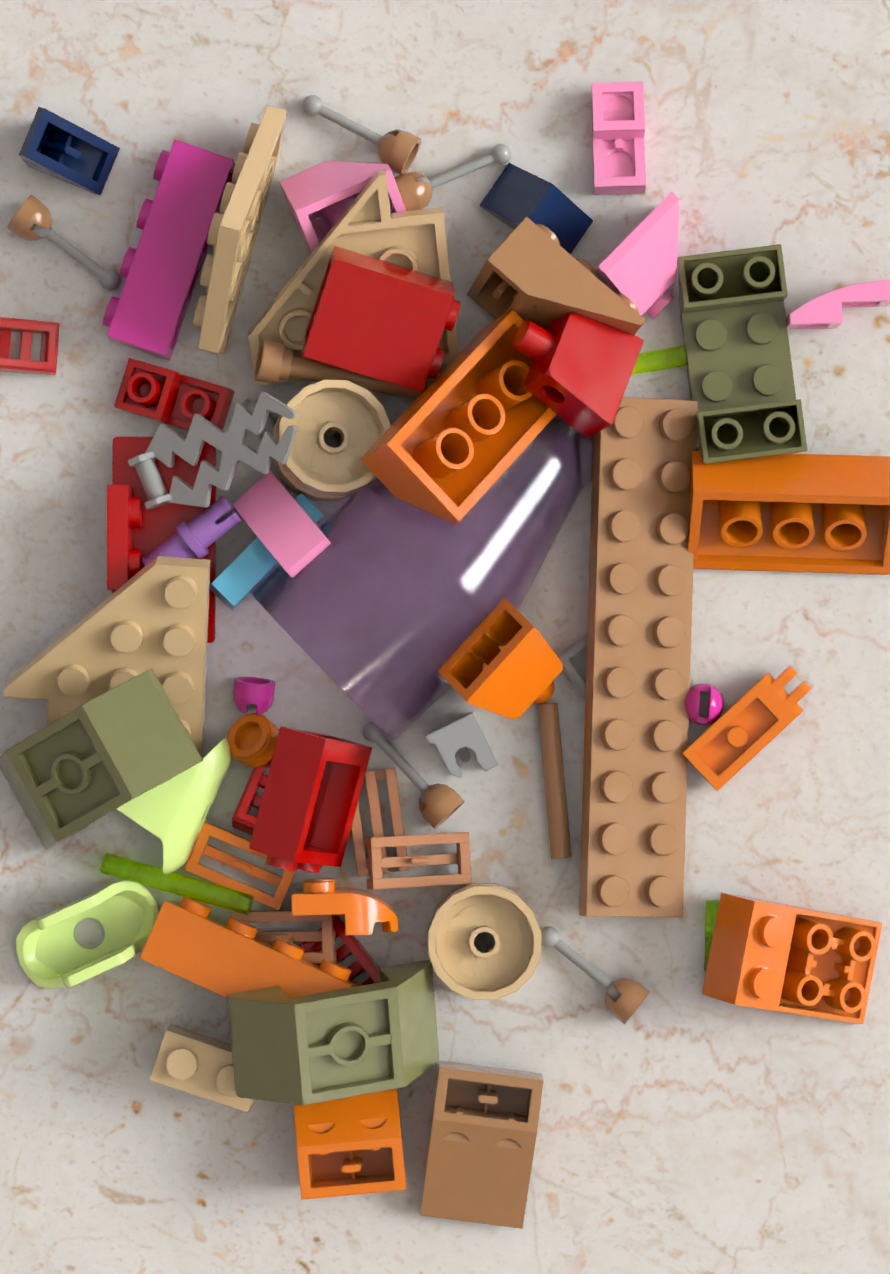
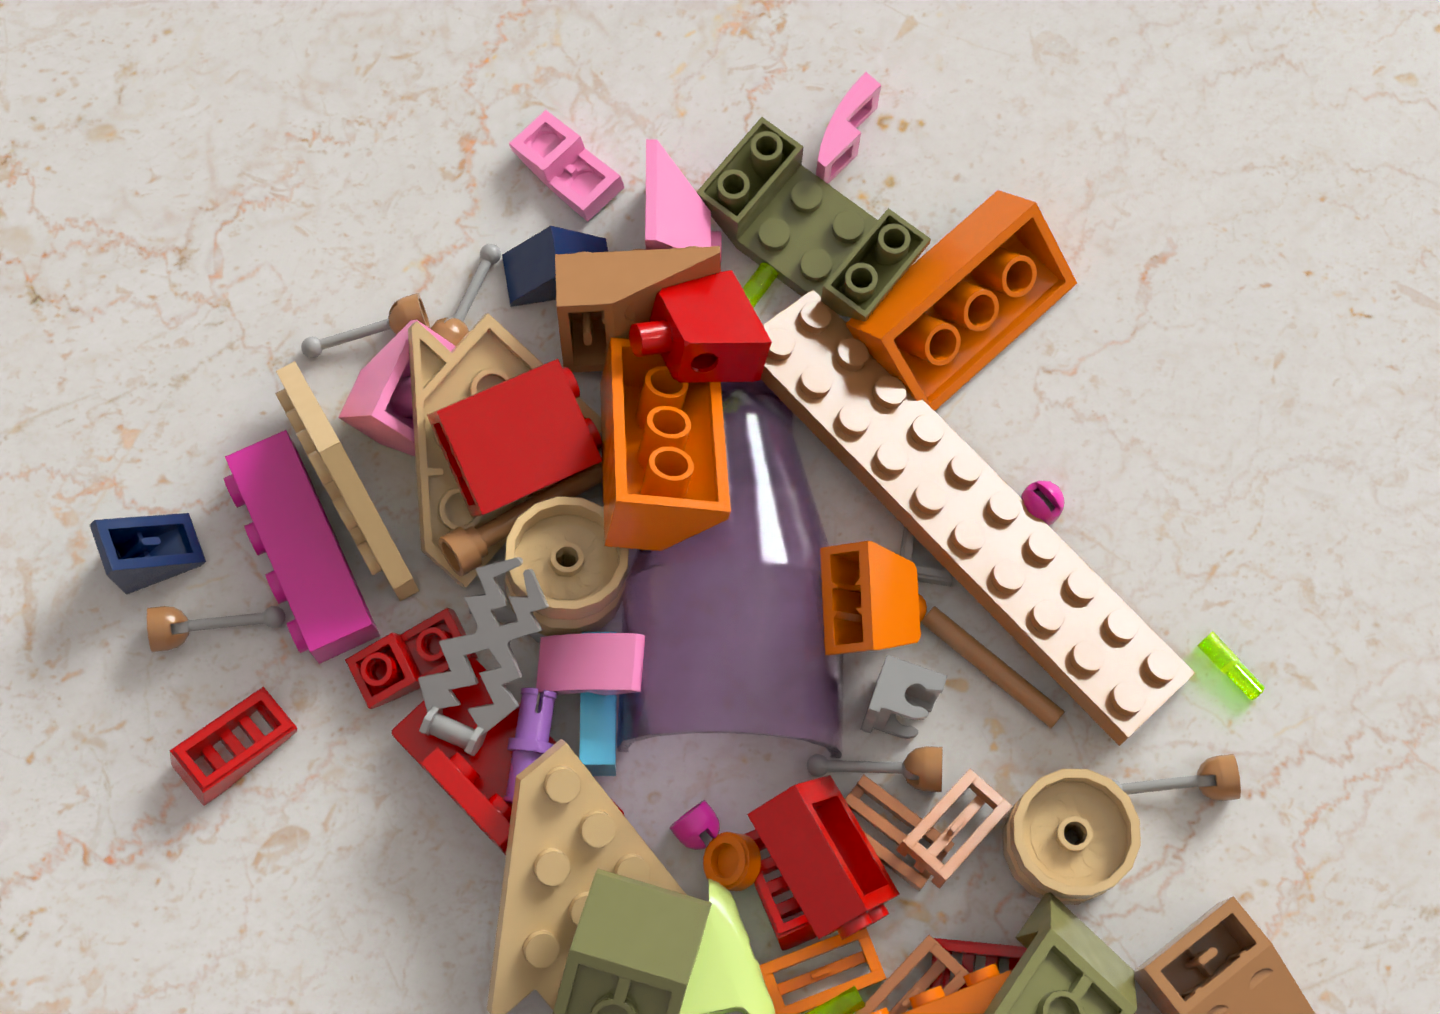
camera: 50 degrees left, 15 degrees down
(359, 906) = (950, 908): orange slope -> none
(746, 728) = (1093, 488): orange hinge -> none
(791, 959) = (1304, 624): orange slope -> none

